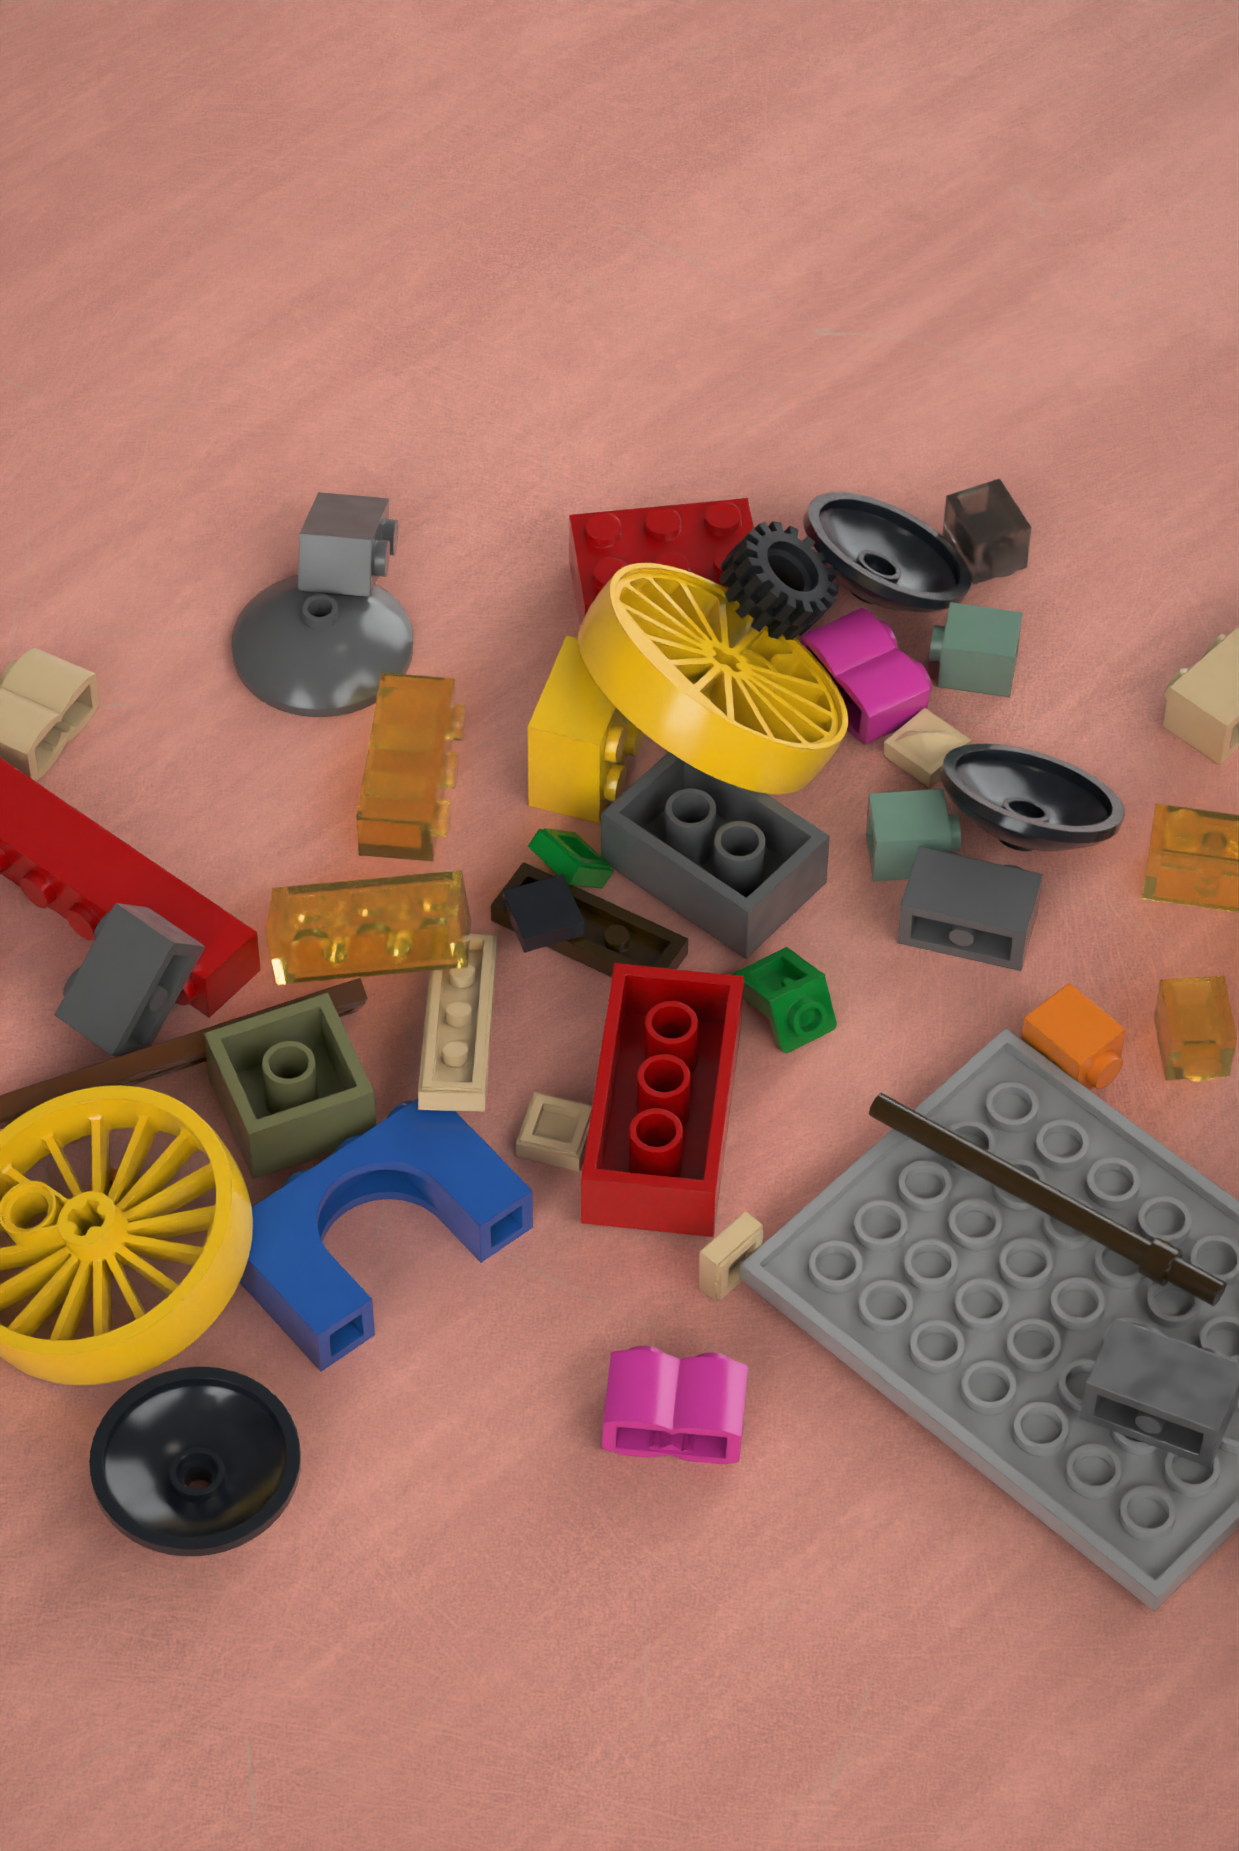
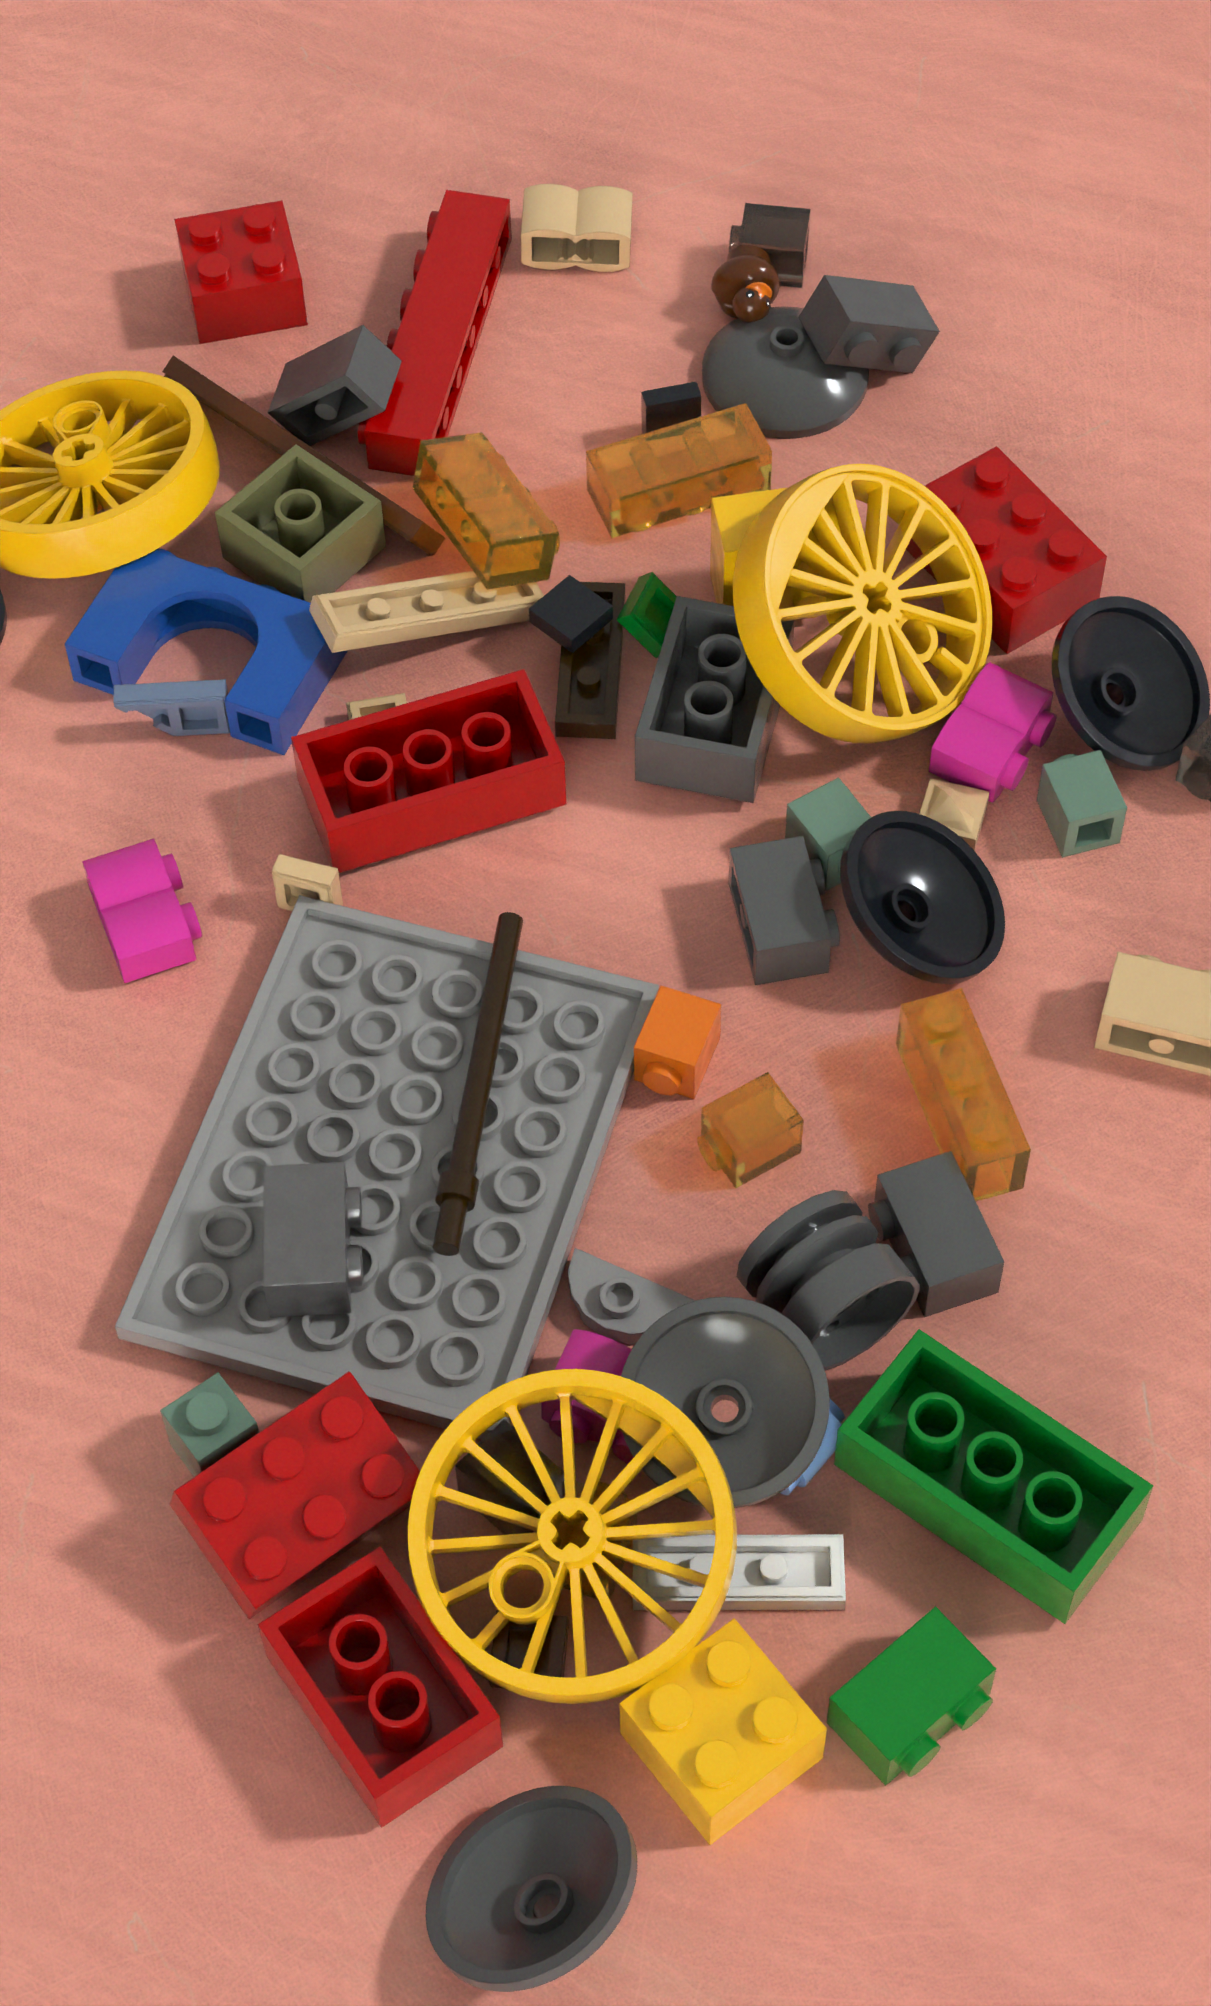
camera: 65 degrees right, 5 degrees up
(172, 576) = (781, 233): none -> clear smoke brick
(214, 612) = (746, 283): none -> reddish brown animal
(330, 742) = (669, 406): none -> black tile
(444, 1273) = (178, 706): none -> sand blue tile
(778, 580) = (1042, 595): black tyre -> none
(791, 996) = (599, 819): green bracket -> none

